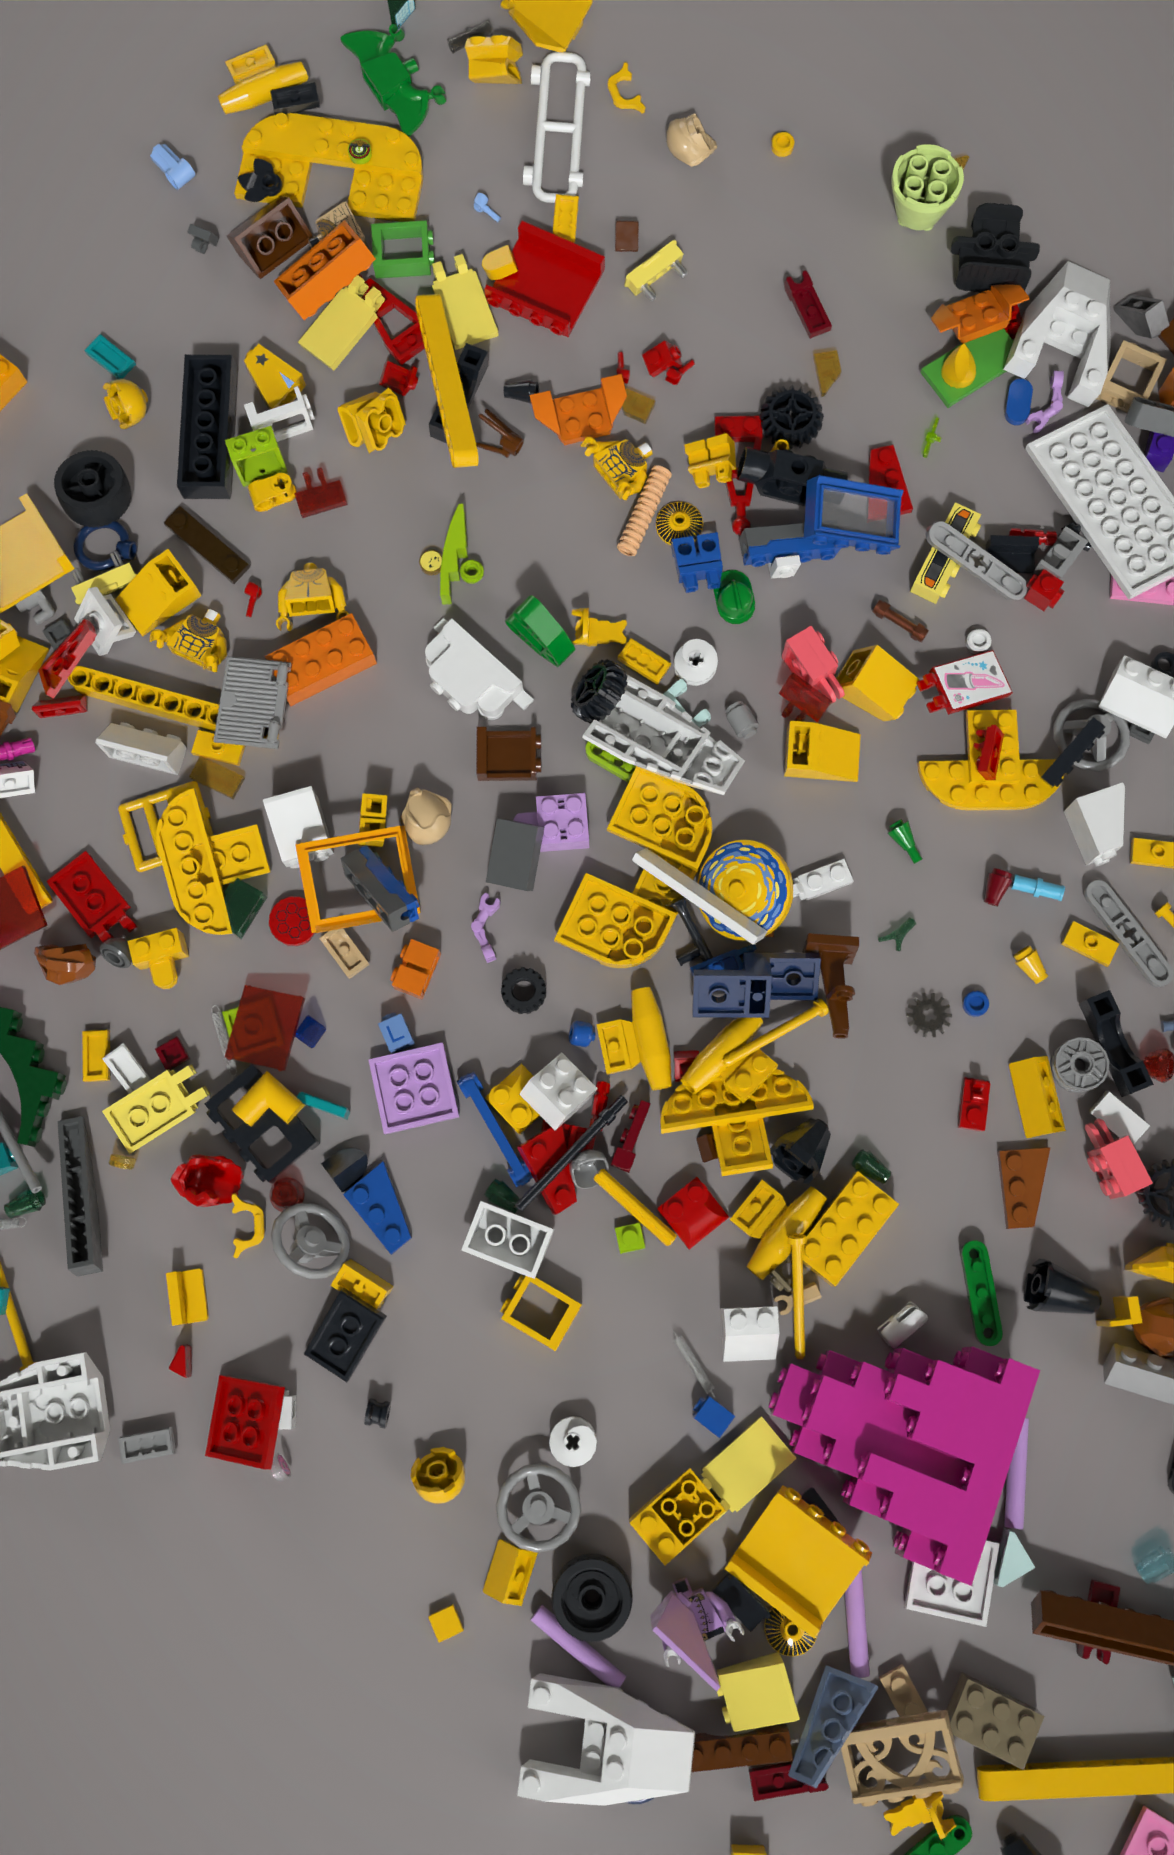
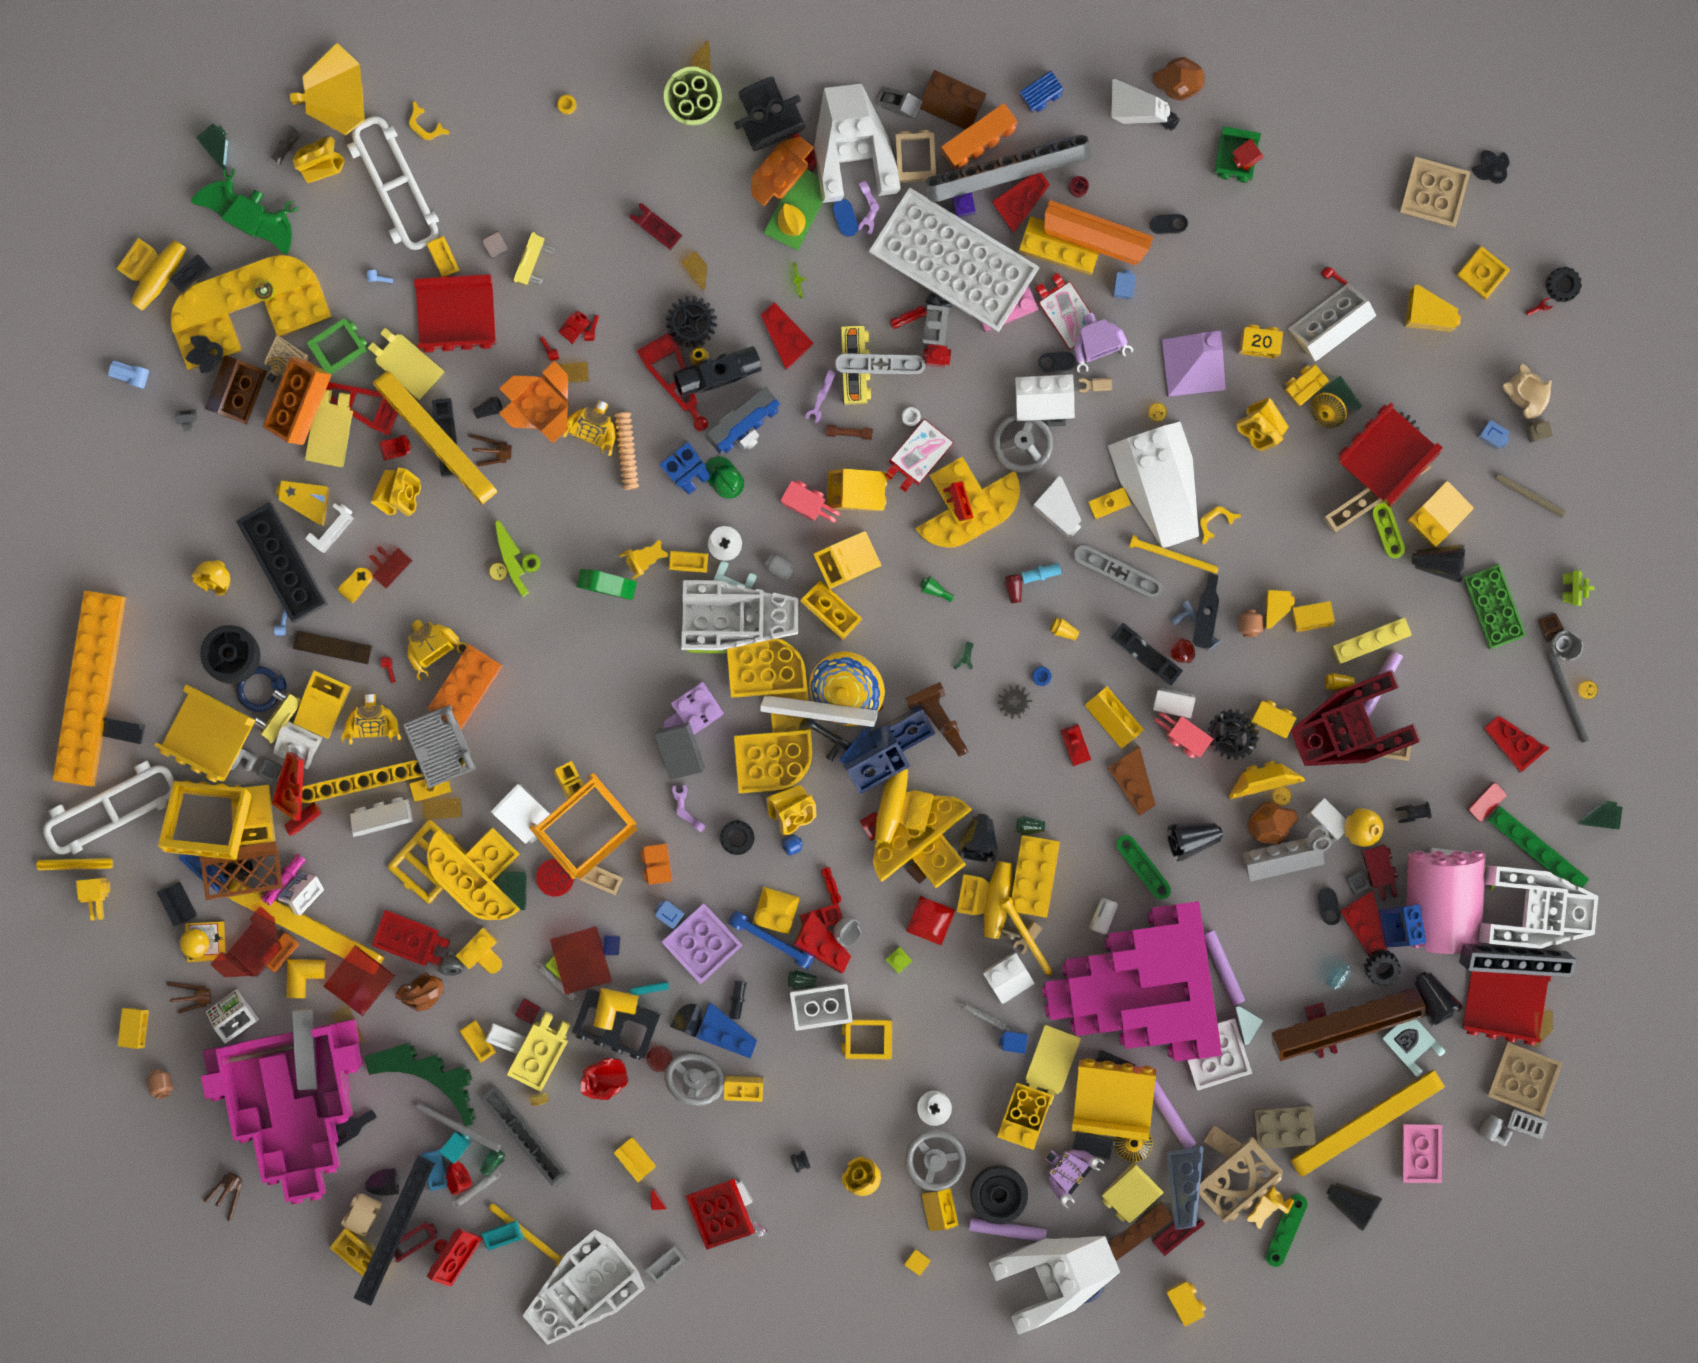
camera: 30 degrees left, 10 degrees up
(110, 357) = (175, 546): teal tile -> none
(163, 497) = (280, 630): none -> light blue hand
(259, 1228) = (652, 1087): yellow helmet -> none
(265, 457) = (328, 569): lime window -> none
(345, 1335) = (751, 1125): black tile -> none
(380, 888) = (604, 825): dark grey piece -> none
(416, 1177) = (737, 1000): none -> black axle
(426, 816) = (604, 757): tan helmet -> none
(471, 674) = (573, 639): white brick -> none
(499, 263) = (415, 318): yellow piece -> none
(507, 755) = (632, 681): reddish brown panel -> none
(558, 1091) = (799, 892): white brick -> none
(576, 404) = (539, 404): none -> orange piece
(599, 691) = (671, 605): black gear -> none
(604, 991) = (791, 808): none -> yellow piece
(606, 1117) = (839, 892): black bar -> none
(623, 1156) = (865, 911): dark red plate -> none
(634, 1207) = (890, 938): yellow axle -> none
(642, 1040) = (832, 829): yellow plate -> none
(669, 529) = (663, 451): dish -> none
(679, 1629) = (1062, 1181): lavender slope -> none
(689, 141) = (499, 144): tan helmet -> none
(711, 458) = (652, 386): yellow hips -> none
(772, 798) = (831, 610): none -> yellow slope
(804, 697) = (814, 529): clear red hinge -> none
(819, 1008) = (939, 739): yellow bar -> none
(822, 880) = (894, 649): white hinge -> none
(852, 514) = (776, 380): window -> none
(904, 557) = (821, 396): none -> lavender piece
(1014, 551) = (901, 339): black panel -> none
(1073, 753) = (1016, 469): black piece -> none
(1090, 944) = (1096, 592): yellow plate -> none
(1095, 1063) = (1119, 676): light grey wheel -> none
(1126, 1311) = (1241, 828): yellow panel -> none

